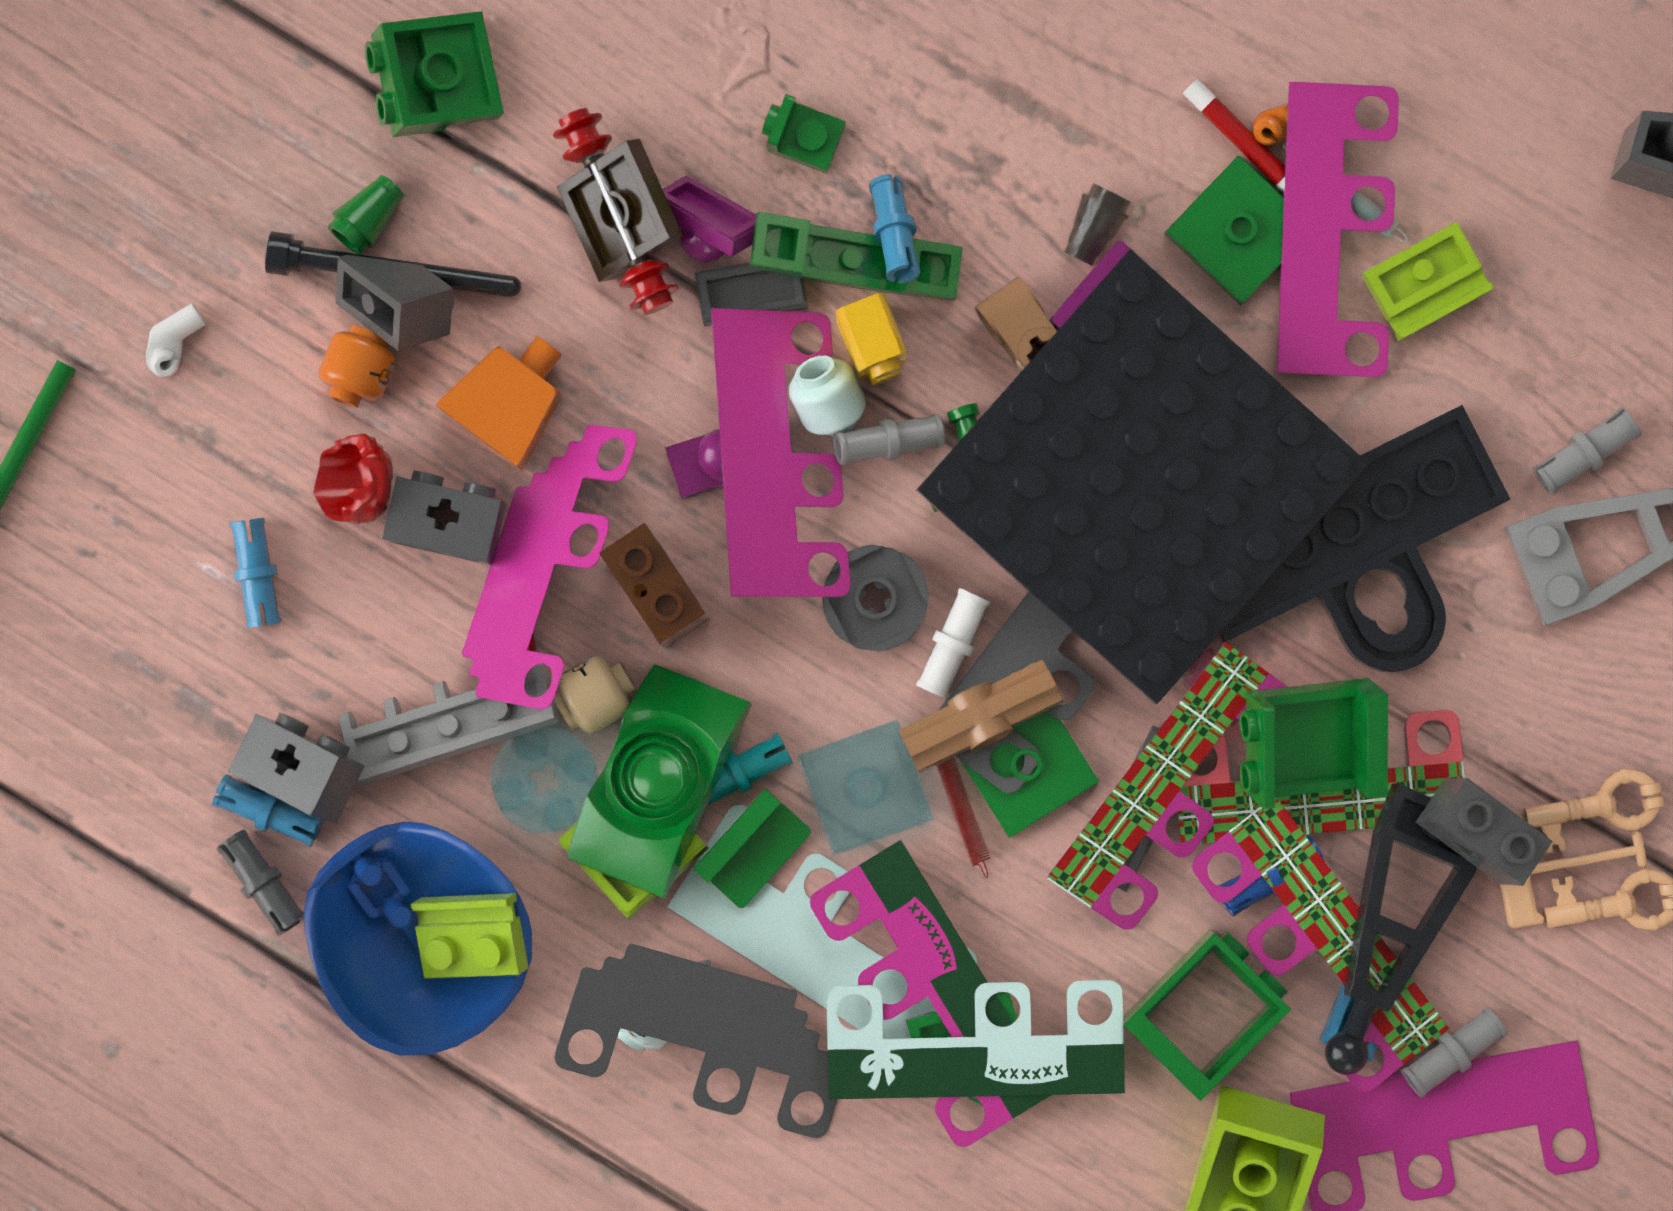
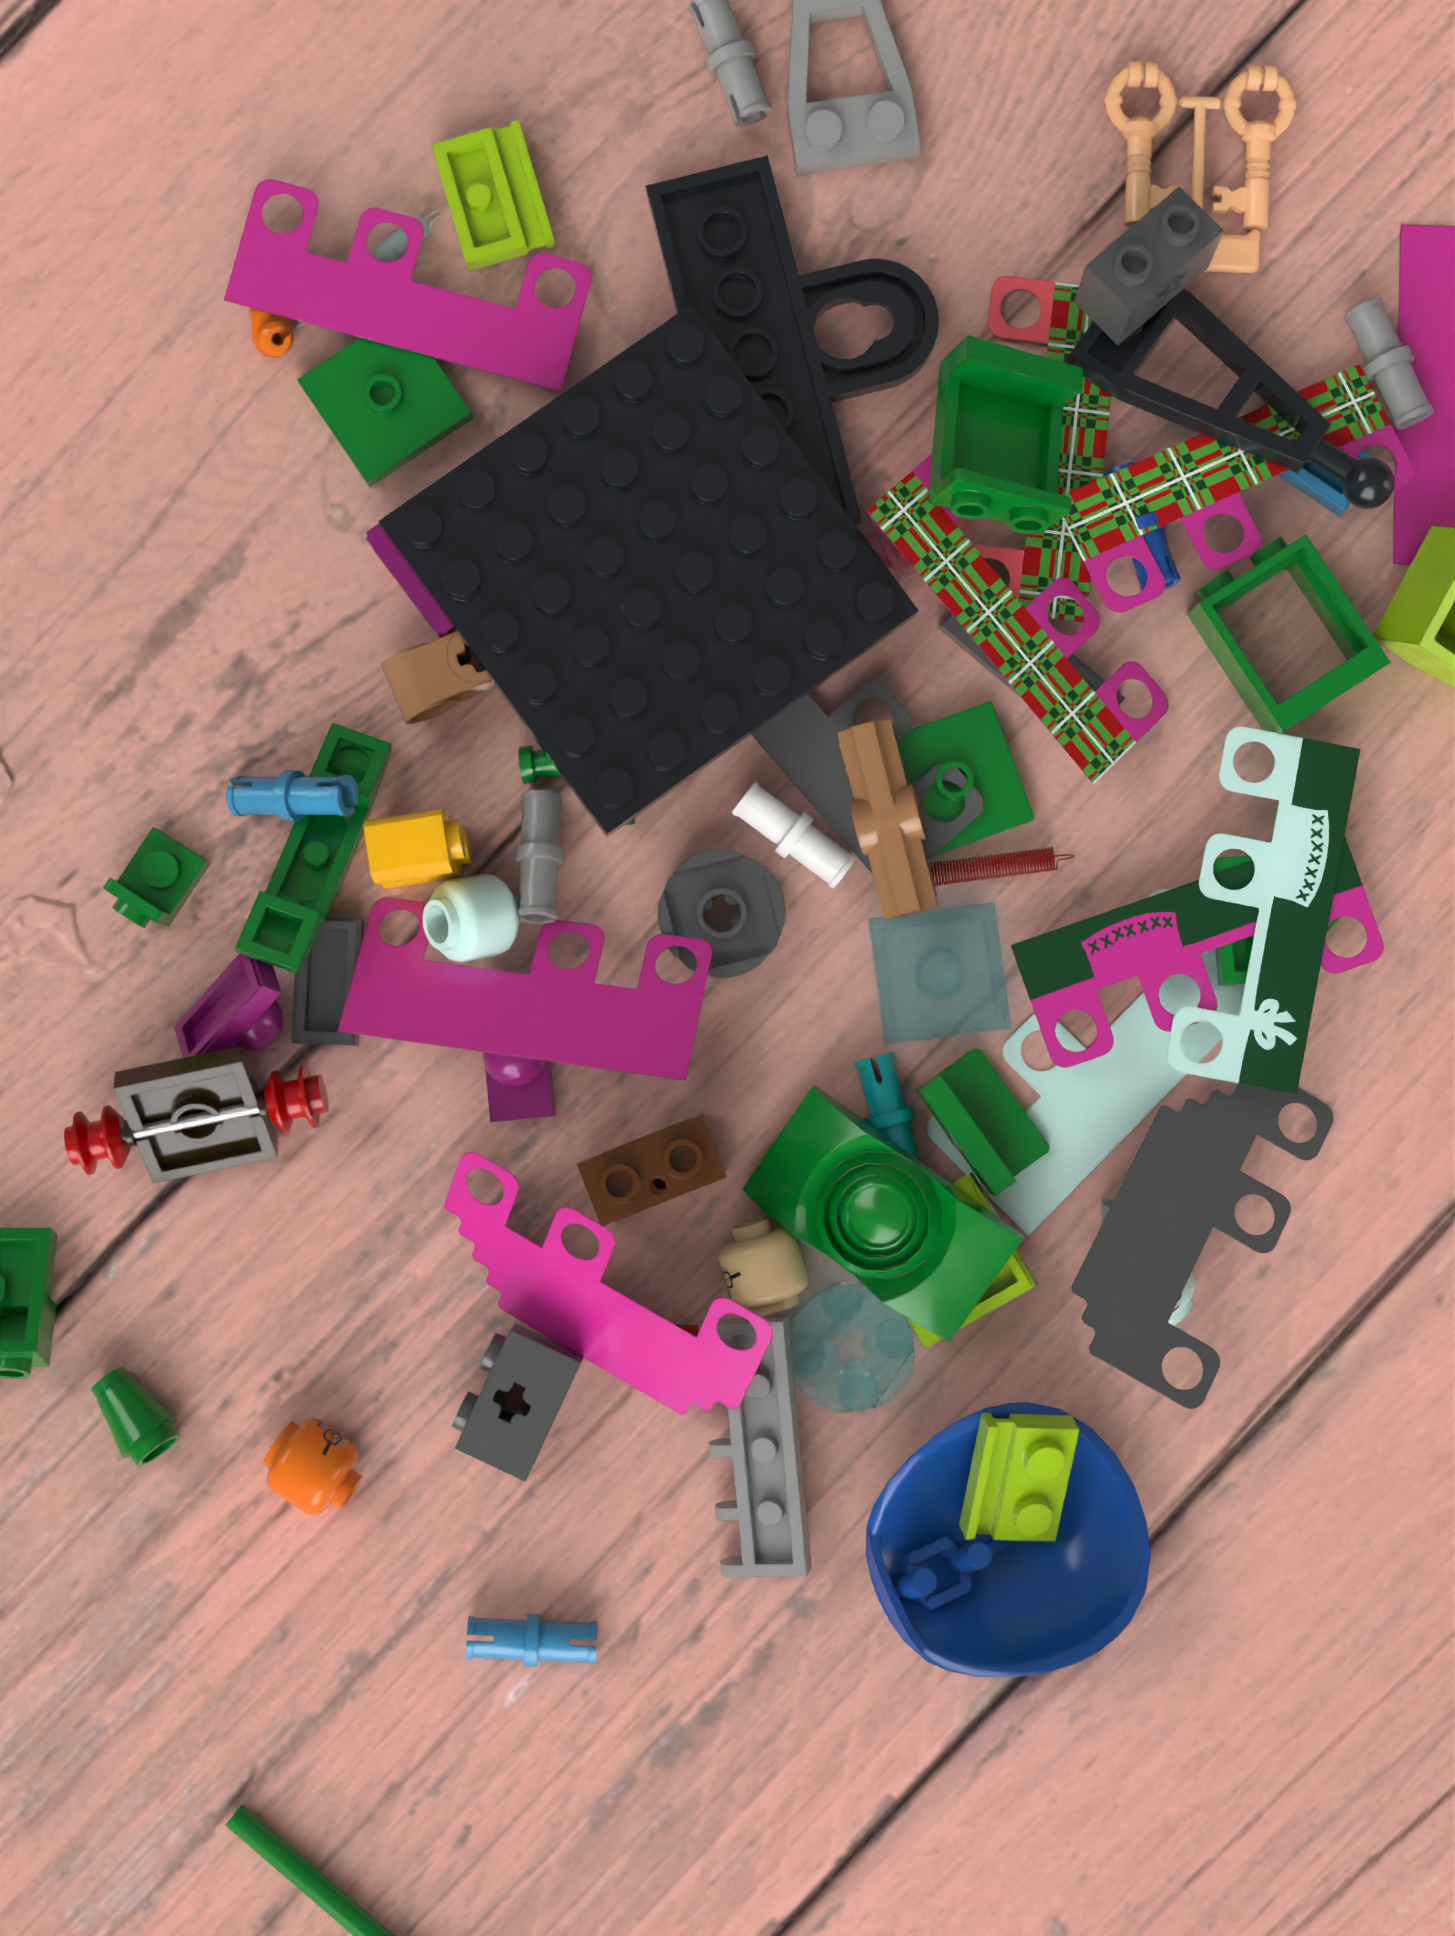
camera: 80 degrees left, 0 degrees up
(167, 338) = (232, 1687): white arm -> none
(261, 882) = (899, 1711): dark grey pin -> none
(266, 810) = (816, 1684): dark azure pin -> none
(270, 762) = (775, 1641): brick -> none
(288, 255) = (161, 1522): black piece -> none
(354, 480) = (447, 1499): red hair -> none
(395, 299) = (243, 1405): dark grey slope -> none
(507, 400) = (392, 1296): orange torso -> none
(1096, 223) = (339, 560): clear smoke cone -> none
(1236, 132) = (272, 375): red bar -> none

